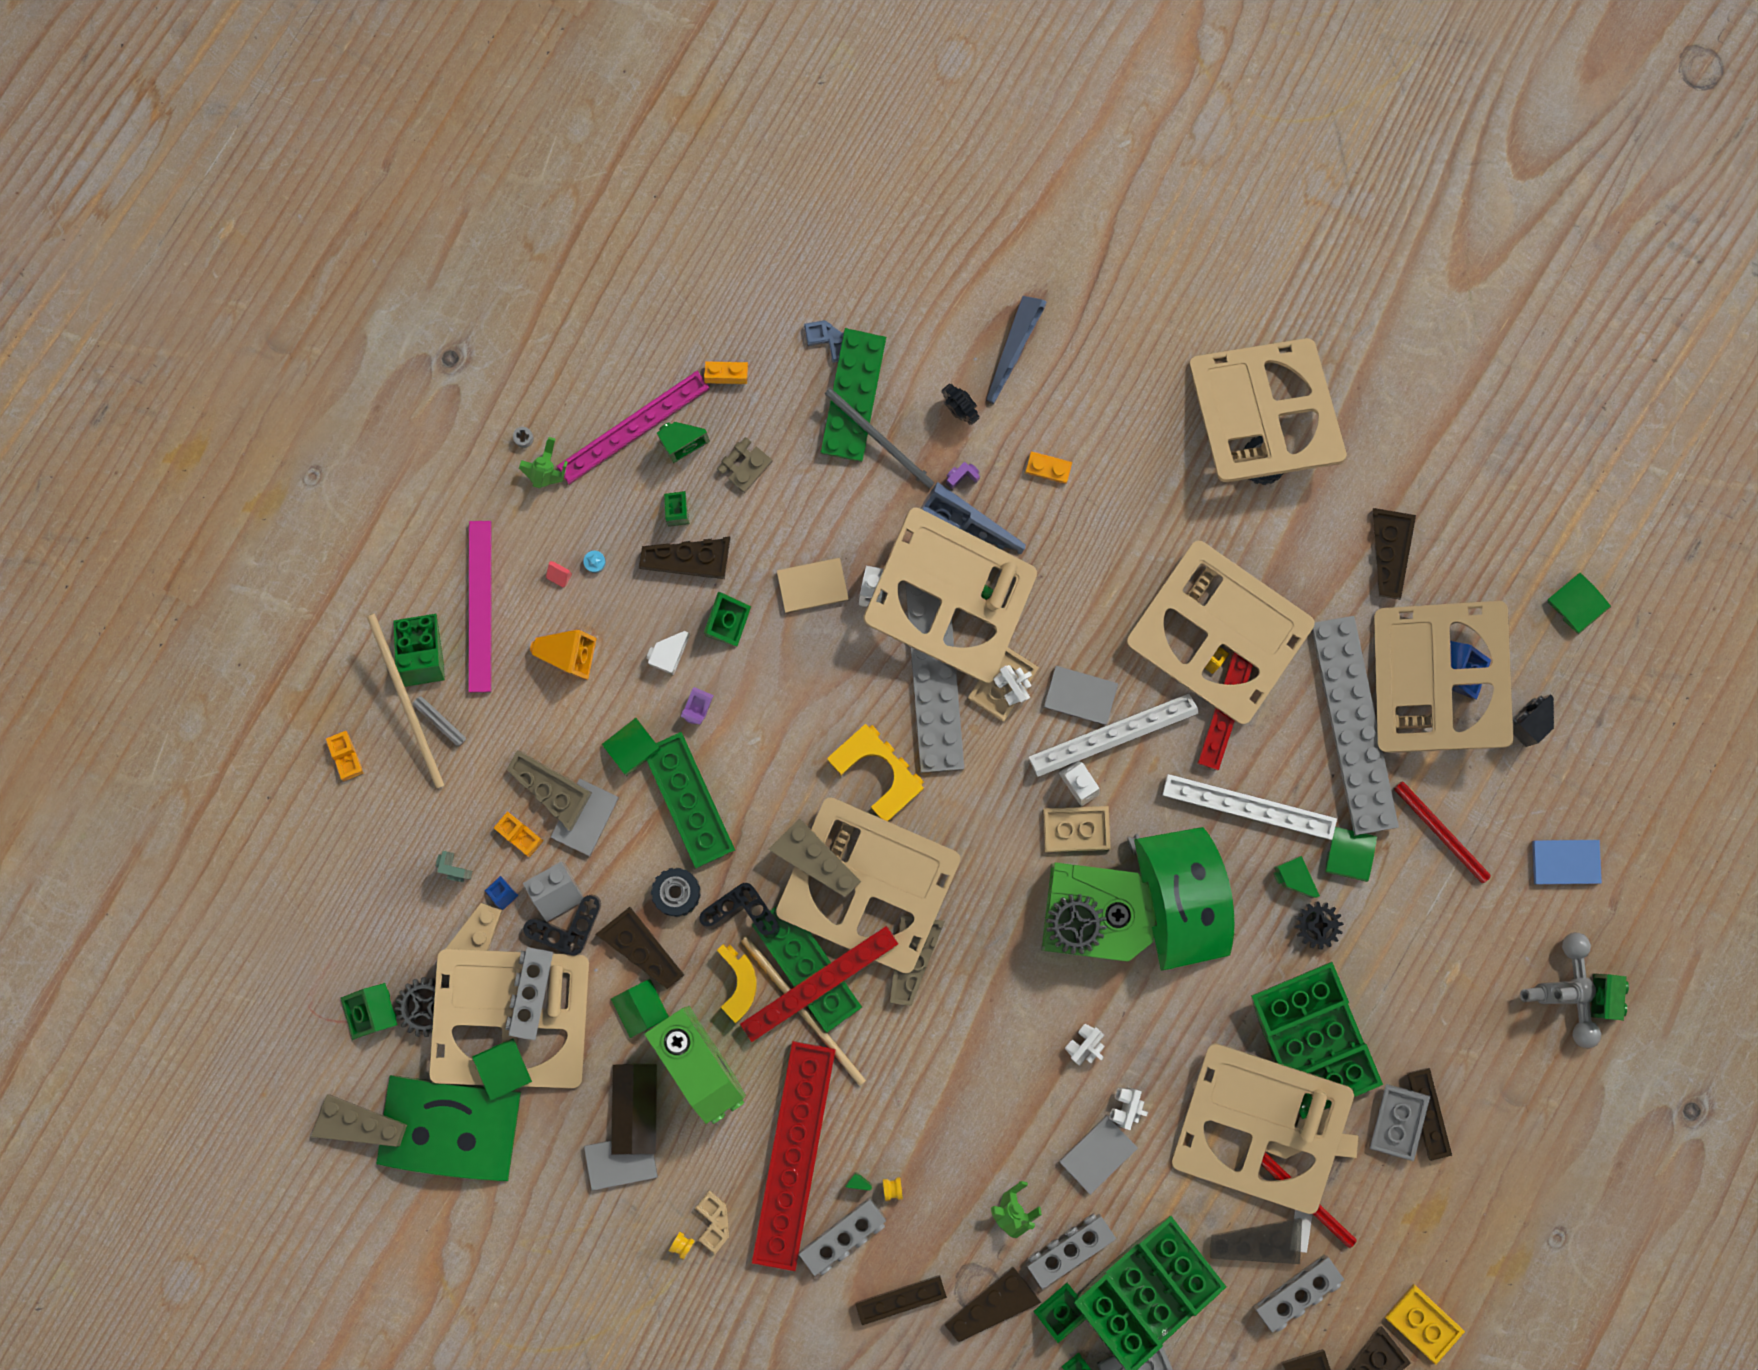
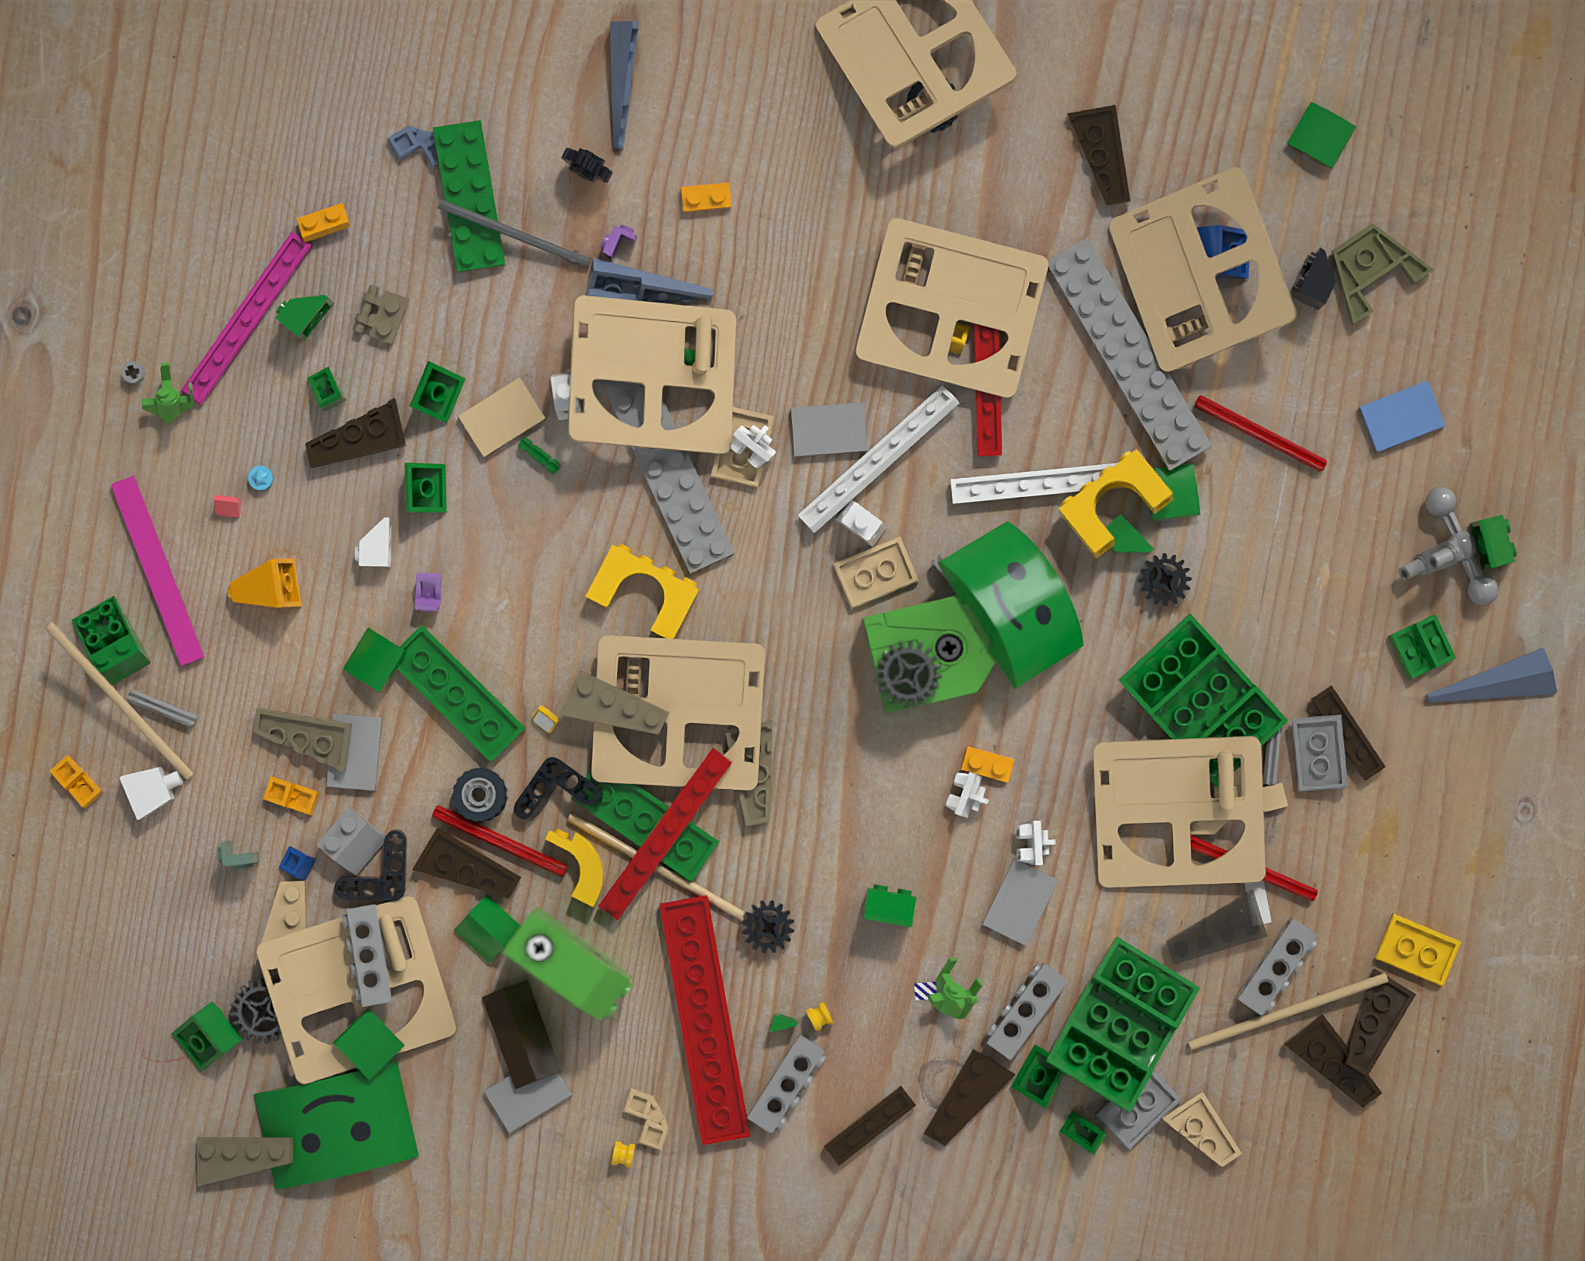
camera: 20 degrees left, 5 degrees up
(402, 785) = (150, 790): none -> white torso
(677, 937) = (499, 841): none -> red axle
(754, 849) = (545, 719): none -> slope
(766, 544) = (437, 392): none -> green slope
(832, 628) = (539, 455): none -> green axle
(887, 1092) = (758, 933): none -> black gear
(986, 1117) = (890, 906): none -> green slope
(989, 1200) = (923, 990): none -> sticker
(1112, 1026) = (987, 764): none -> light orange plate
(1295, 1336) = (1288, 1011): none -> tan piece
(1323, 824) = (1131, 473): none -> yellow arch
(1356, 1112) = (1271, 759): none -> light grey axle
(1517, 1063) = (1422, 646): none -> green slope
(1584, 719) = (1368, 258): none -> olive wing
(1595, 1120) = (1518, 677): none -> sand blue wedge

